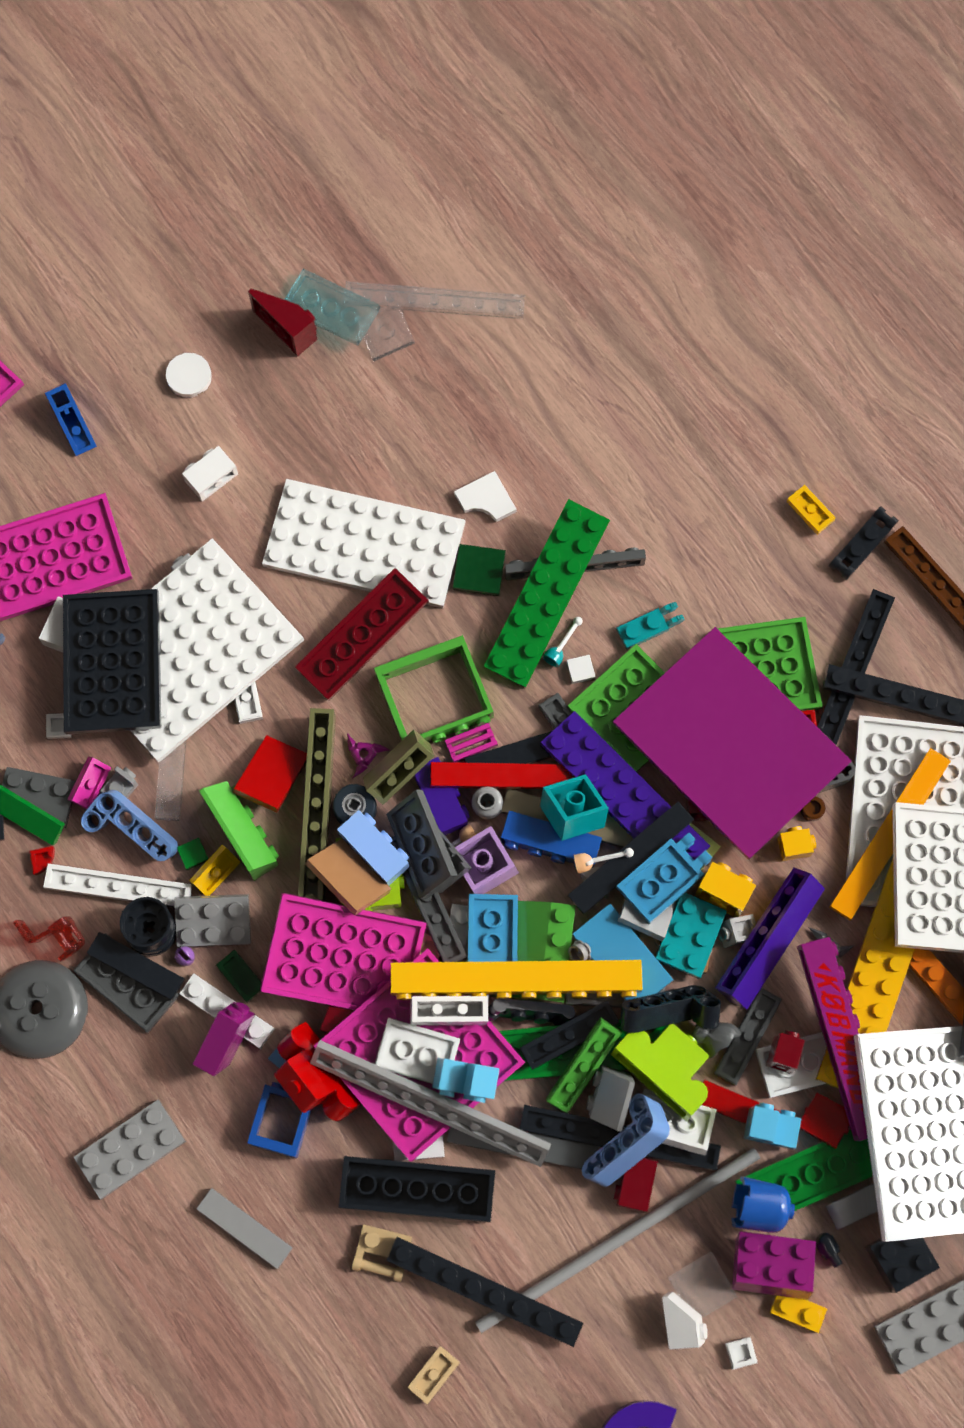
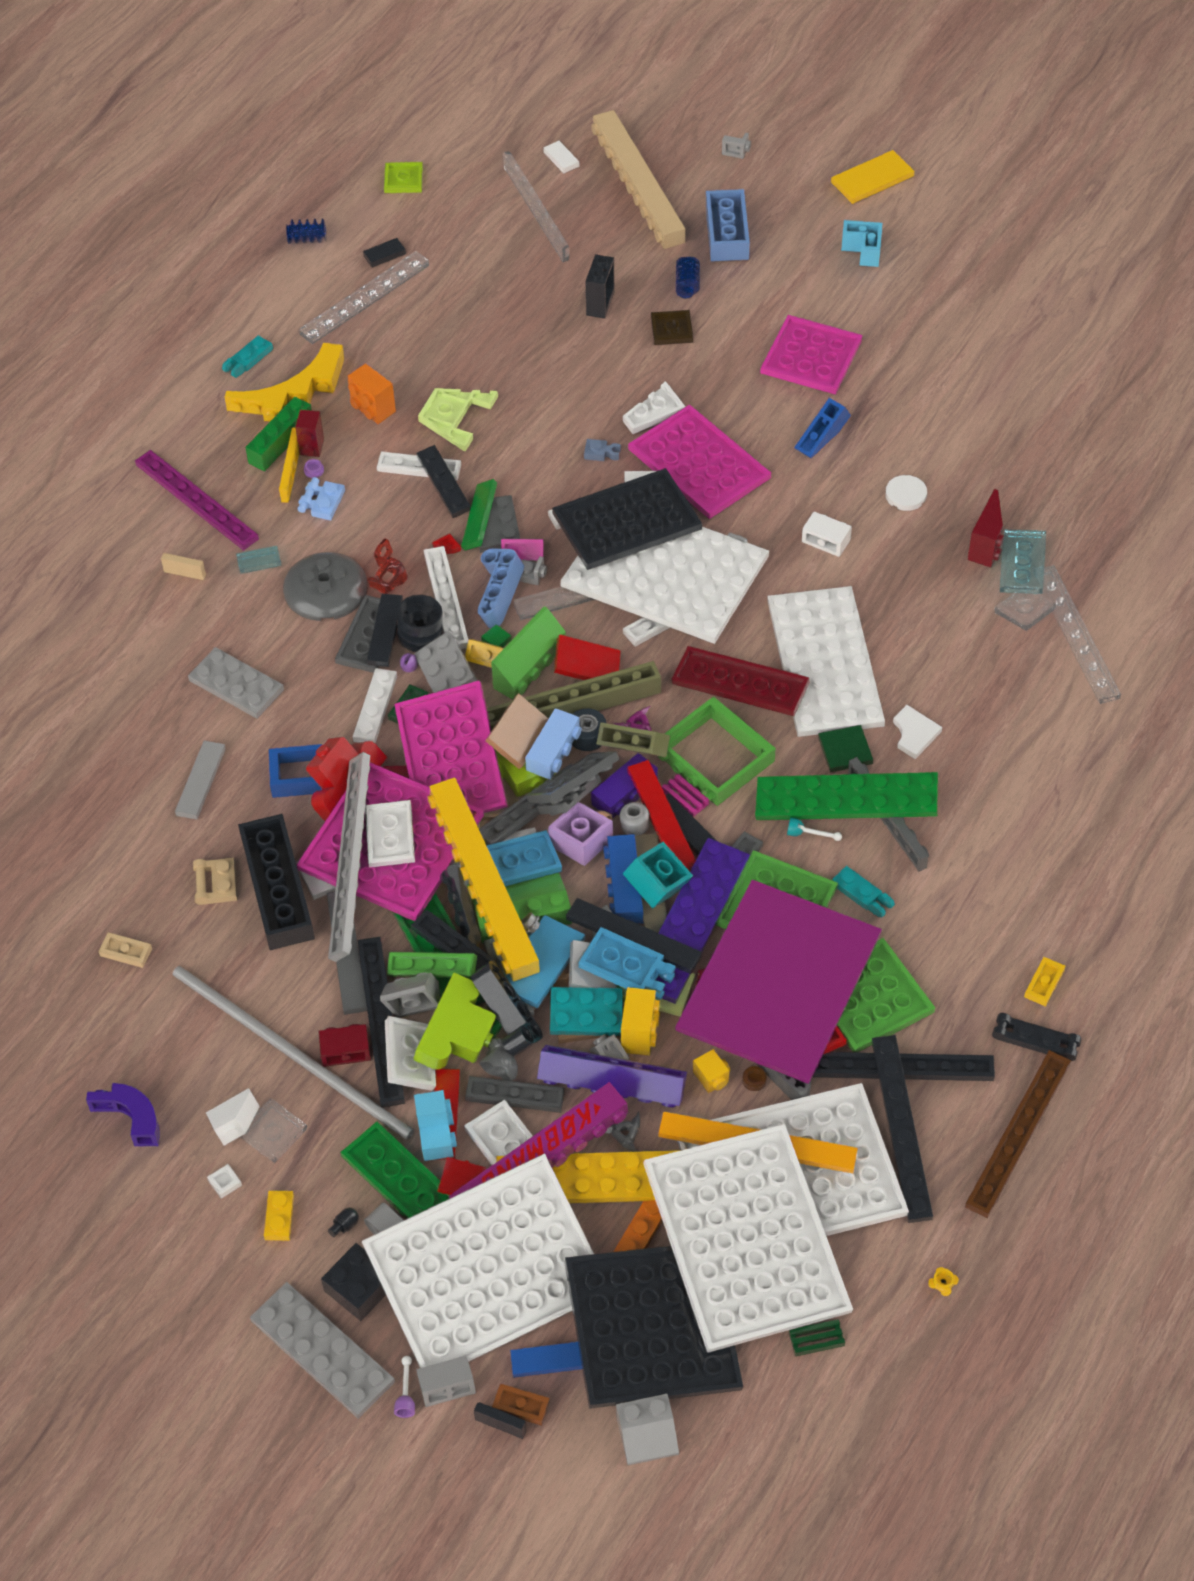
camera: 70 degrees right, 20 degrees down
(224, 1038) = (347, 699): magenta brick -> none
(449, 1010) = (432, 834): white brick -> none
(472, 1080) = (378, 867): medium azure brick -> none
(485, 1291) = (207, 961): black plate -> none
(580, 669) = (794, 852): white tile -> none
(585, 862) = (611, 899): hinge -> none
(631, 1145) = (375, 1014): medium blue beam -> none
(761, 1206) = (357, 1136): blue cylinder -> none
(774, 1265) = (310, 1173): magenta brick -> none
(785, 1052) = (507, 1110): dark red brick -> none

